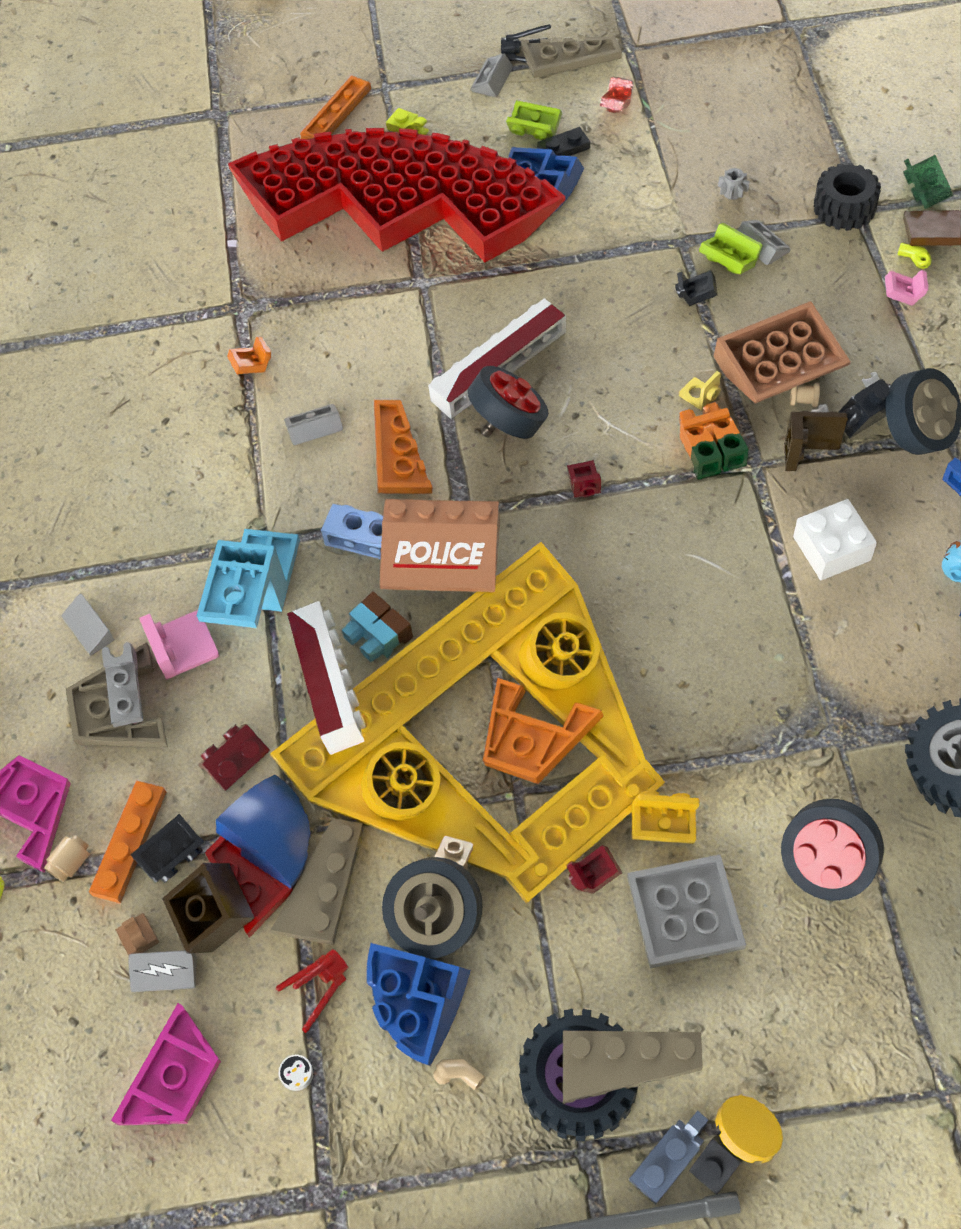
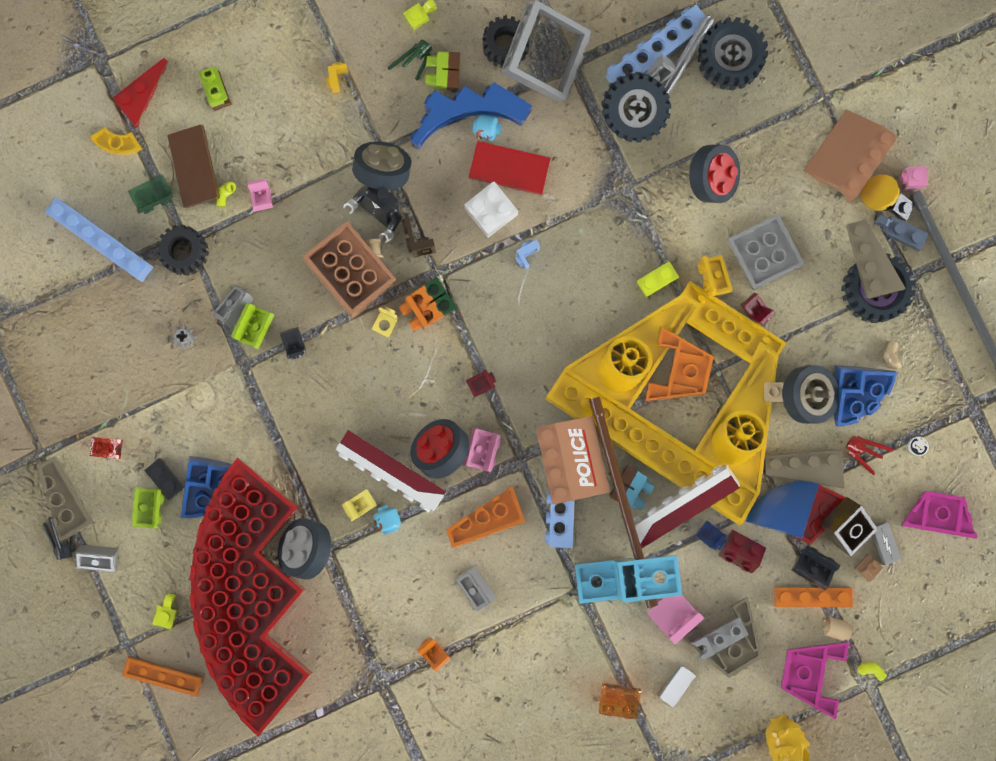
camera: 115 degrees left, 25 degrees up
(96, 547) = (619, 701): none -> clear orange bracket
(271, 717) = (711, 536): none -> clear blue bracket
(429, 243) = (304, 549): none -> black wheel
(436, 342) = (387, 520): none -> medium azure head
(464, 315) = (359, 505): none -> light yellow bracket
(493, 459) = (482, 449): none -> bright pink bracket
(493, 596) = (598, 413): none -> reddish brown piece
(679, 742) = (657, 279): none -> neon yellow plate
(761, 569) = (527, 248): none -> light blue bracket
(764, 1201) = (914, 178): none -> bright pink brick
(827, 1102) = (850, 154): none -> nougat piece
(878, 123) = (99, 239): none -> light blue brick
(894, 583) = (509, 168): none -> red tile

